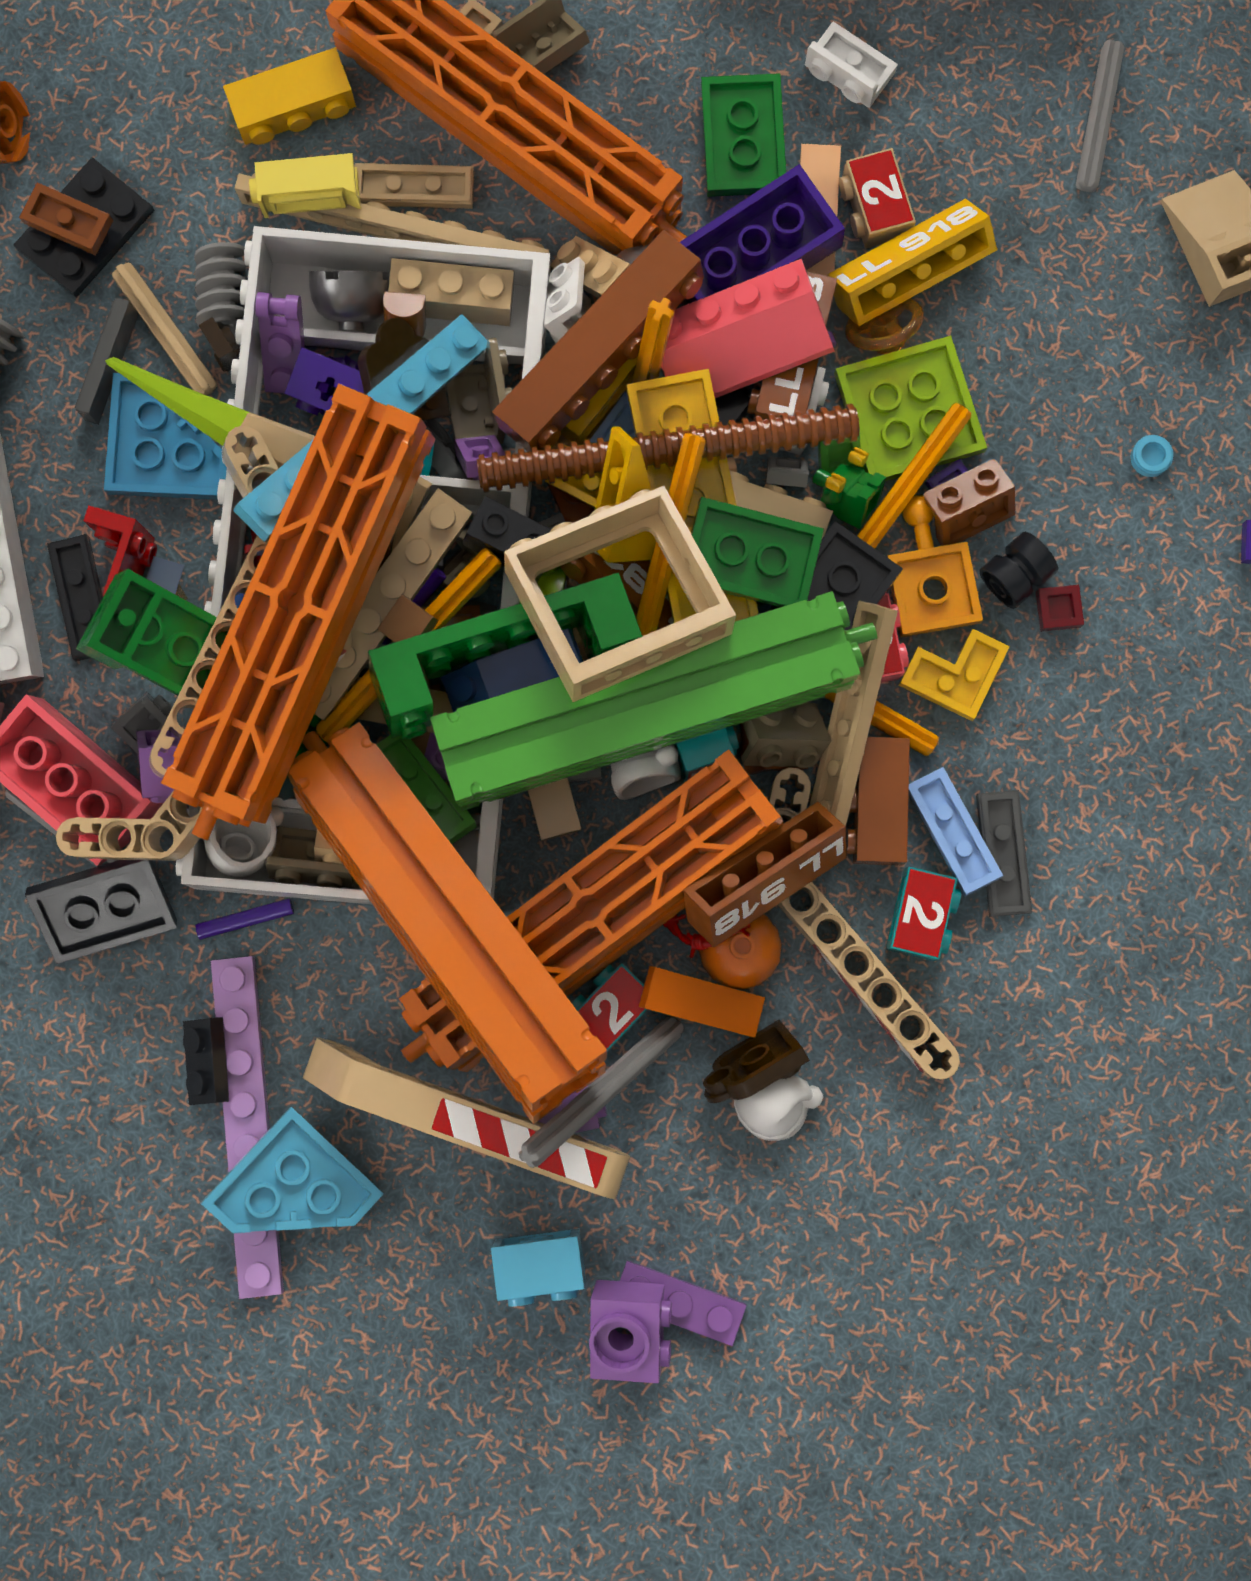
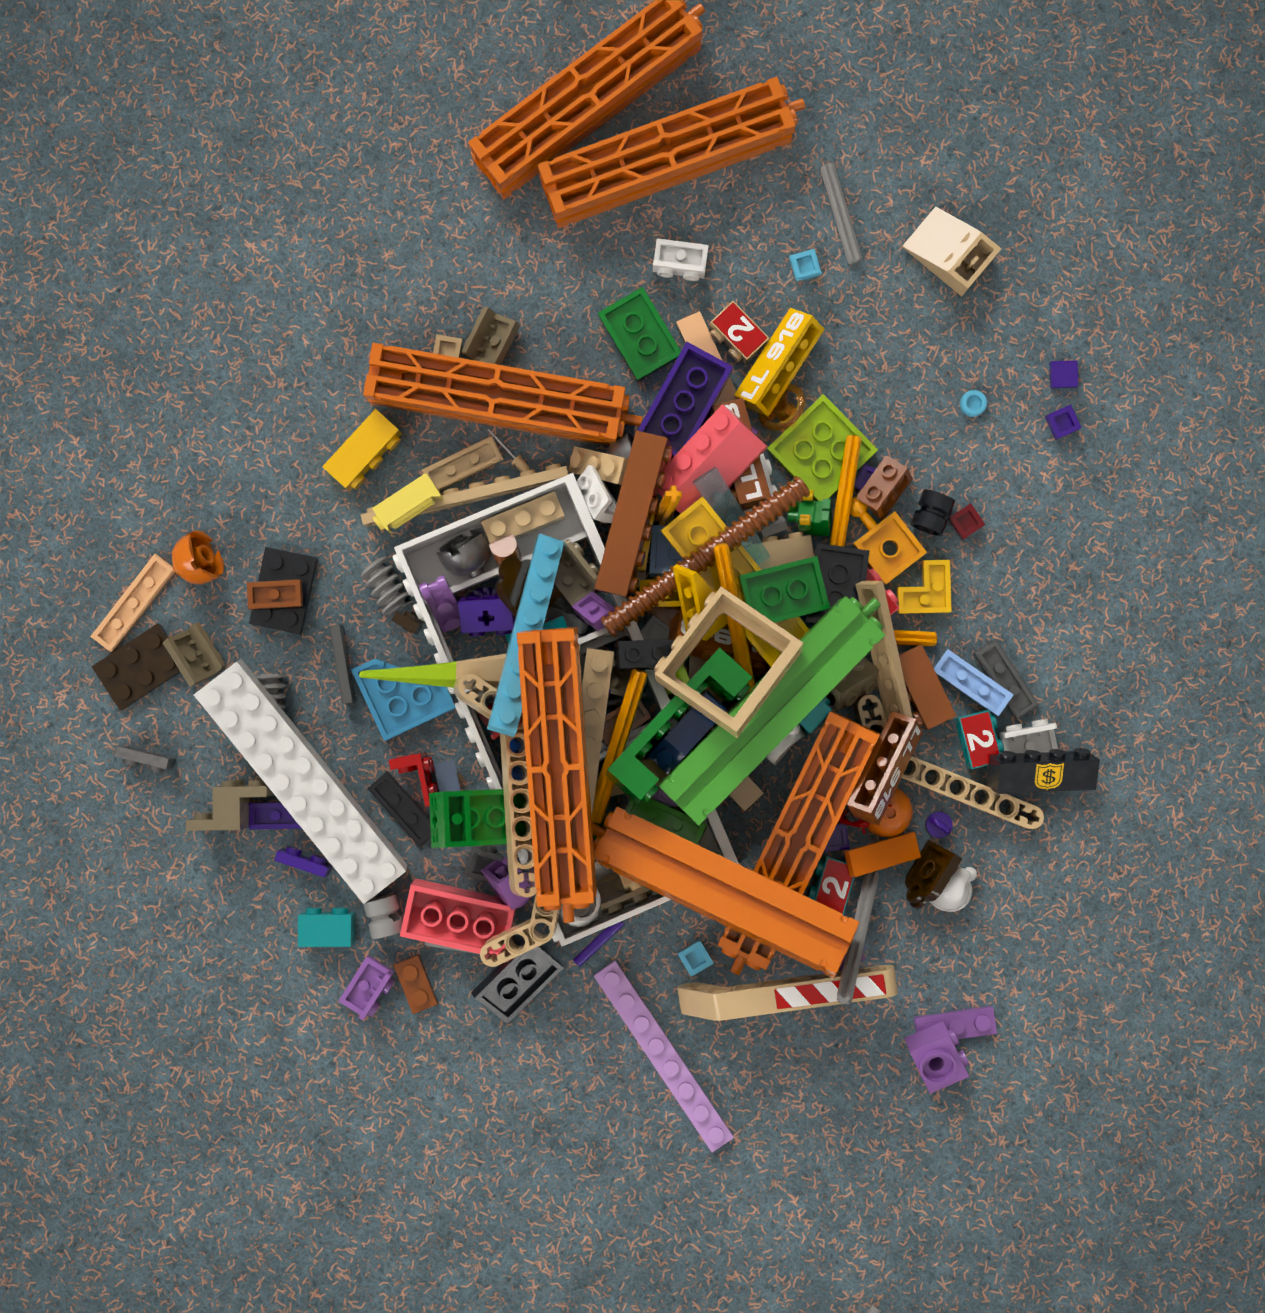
camera: 30 degrees left, 5 degrees up
(164, 329) = (364, 627): tan axle -> none
(205, 1061) = (622, 1033): black plate -> none
(291, 1183) = (708, 1075): medium azure plate -> none
(365, 1010) = (695, 957): none -> medium azure plate
(406, 620) = (613, 736): medium nougat tile -> none
(490, 217) = (518, 461): none -> tan piece
(538, 1266) = (870, 1048): medium azure brick -> none
(651, 950) = (838, 839): none -> tile
(733, 395) = (720, 498): none -> clear light blue tile
(804, 1006) = (938, 824): none -> dark purple tile
(989, 1003) = (1042, 771): none -> black brick
(991, 954) = (1037, 737): none -> white bracket
(1015, 159) = (805, 265): none -> medium azure tile

